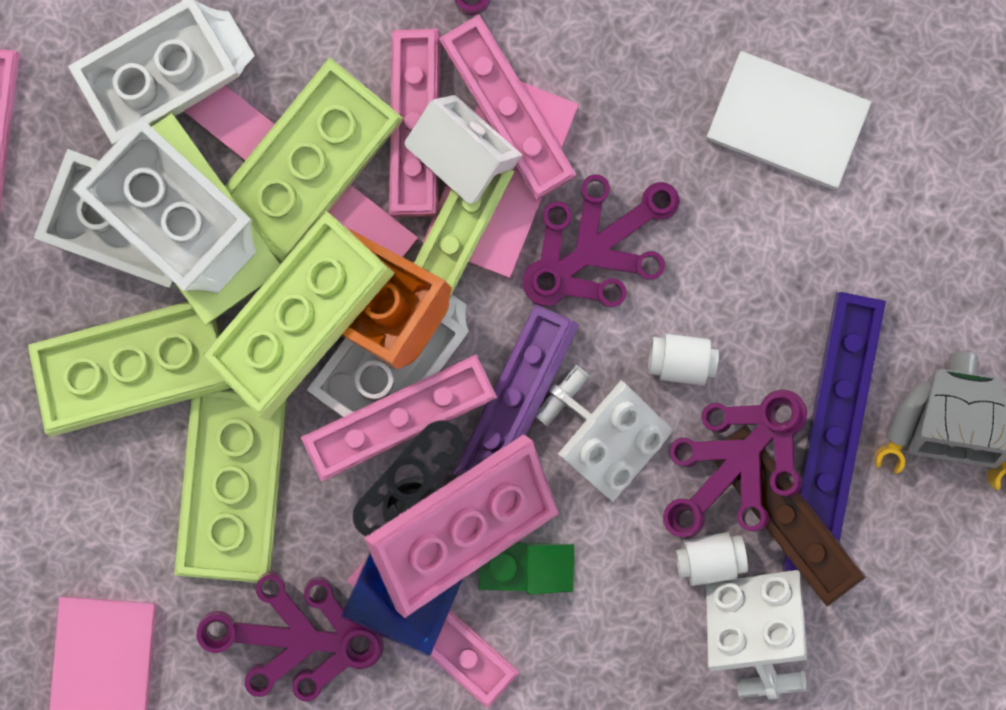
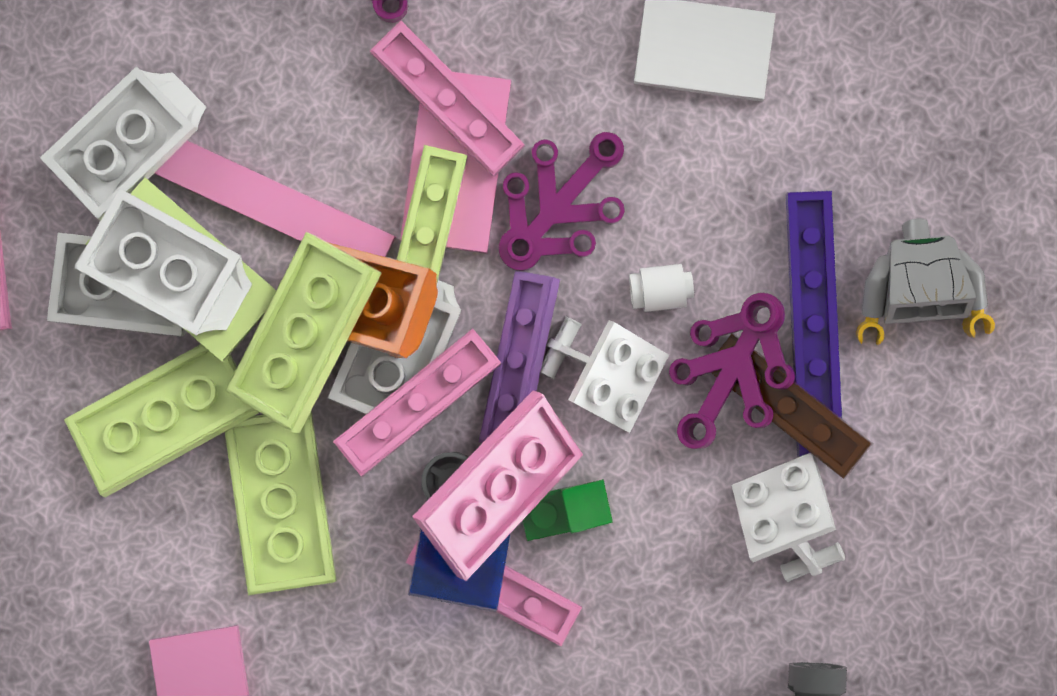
camera: 10 degrees left, 0 degrees up
(298, 638) = (375, 625): magenta plant -> none
(311, 157) = (280, 186): yellowish green tile -> none
(374, 497) = (446, 419): black beam -> none
(413, 85) = (367, 133): bright pink tile -> none
(460, 147) = (413, 145): white panel -> none
(712, 558) = (730, 461): white brick -> none

